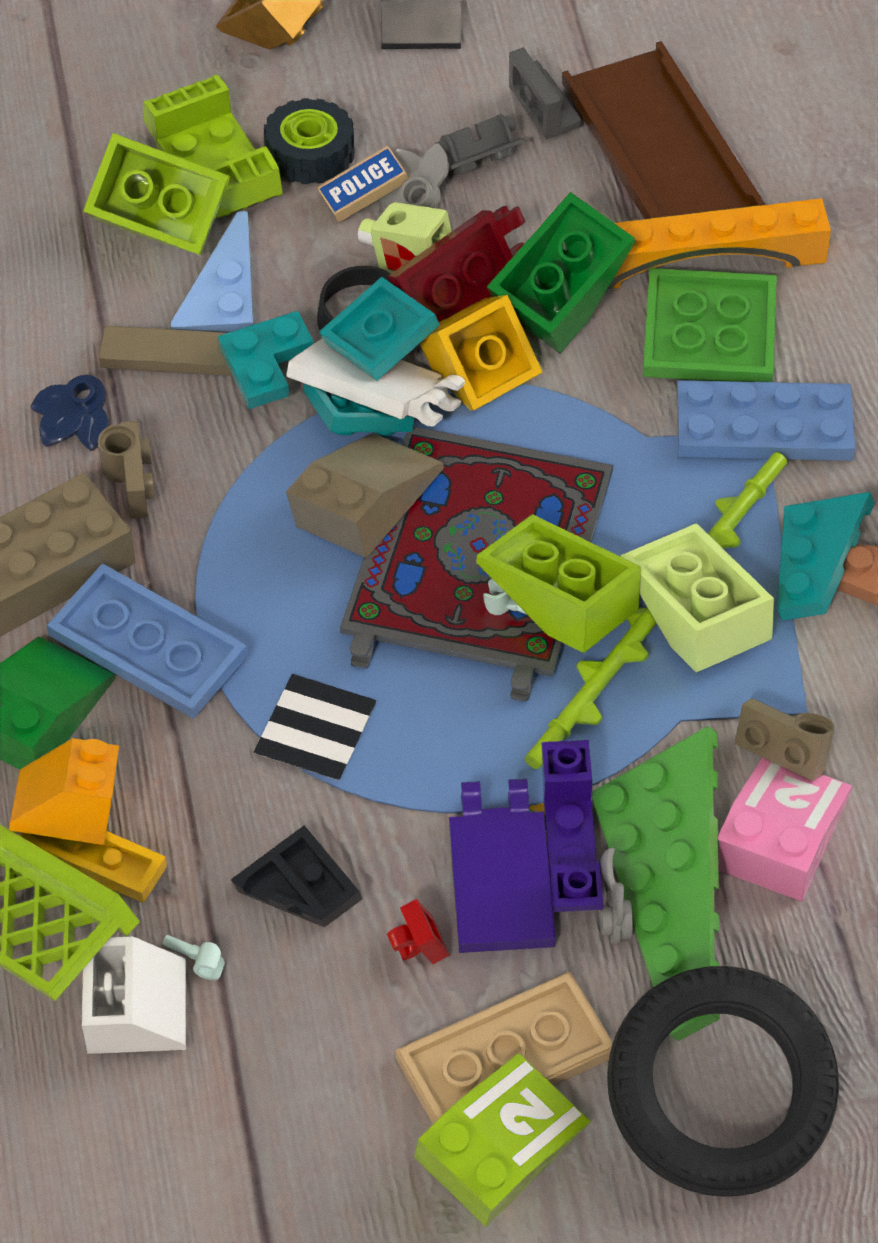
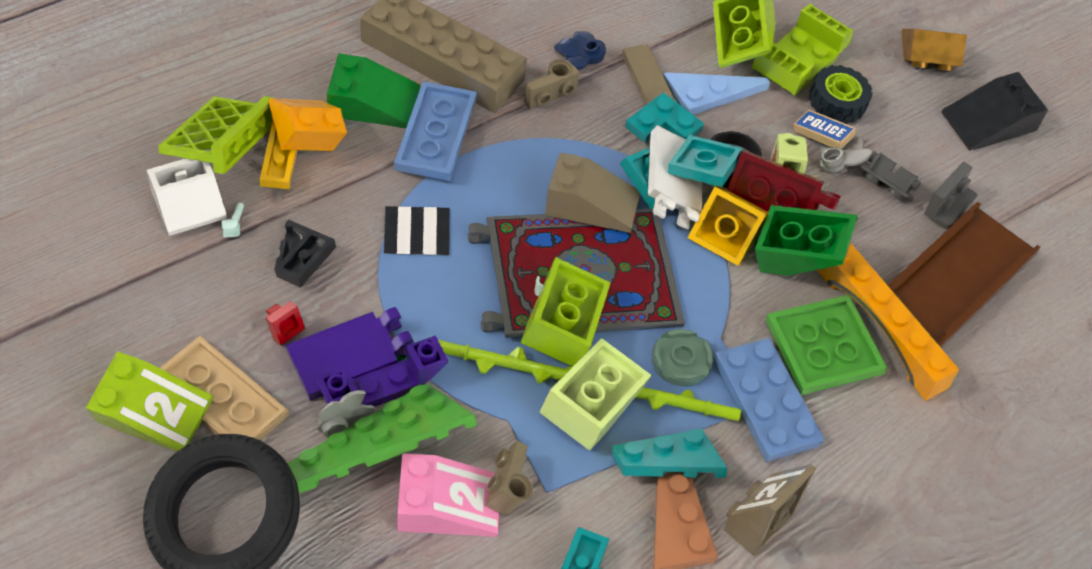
camera: 60 degrees right, 0 degrees up
(665, 488) = (682, 357): none -> sand green tile

